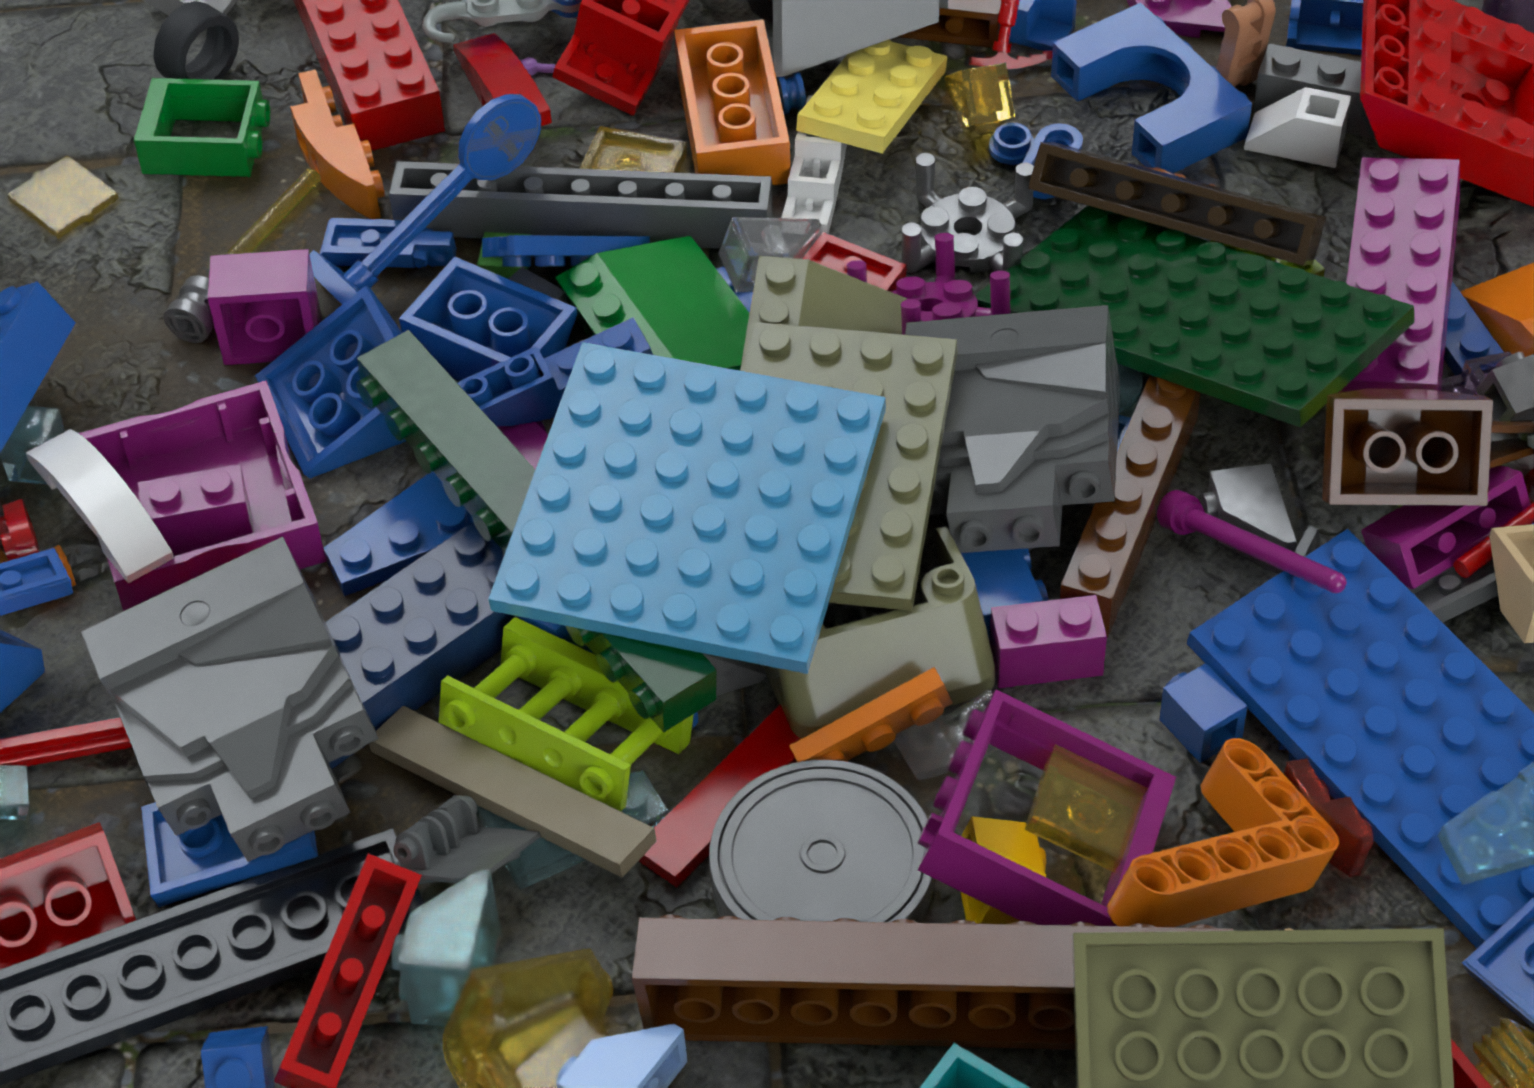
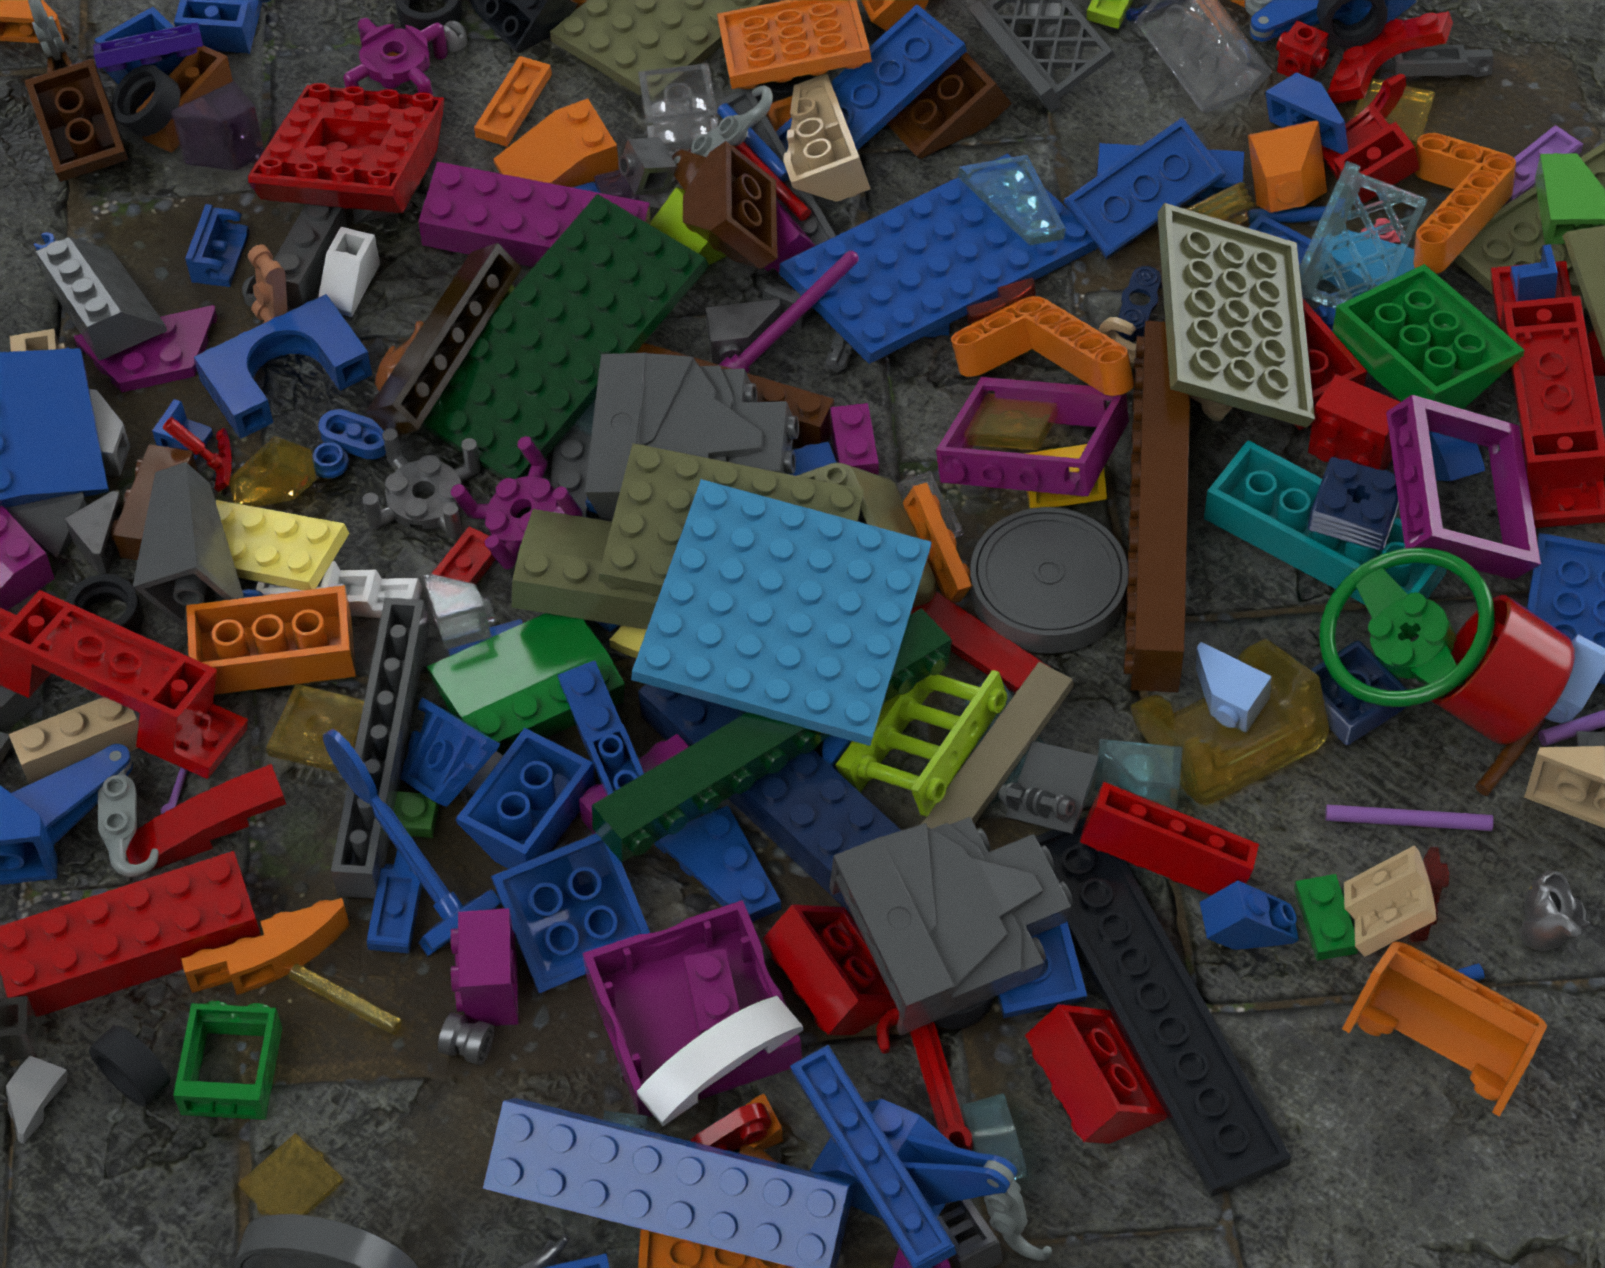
camera: 90 degrees left, 5 degrees up
(1202, 711) = (914, 368): blue brick -> none

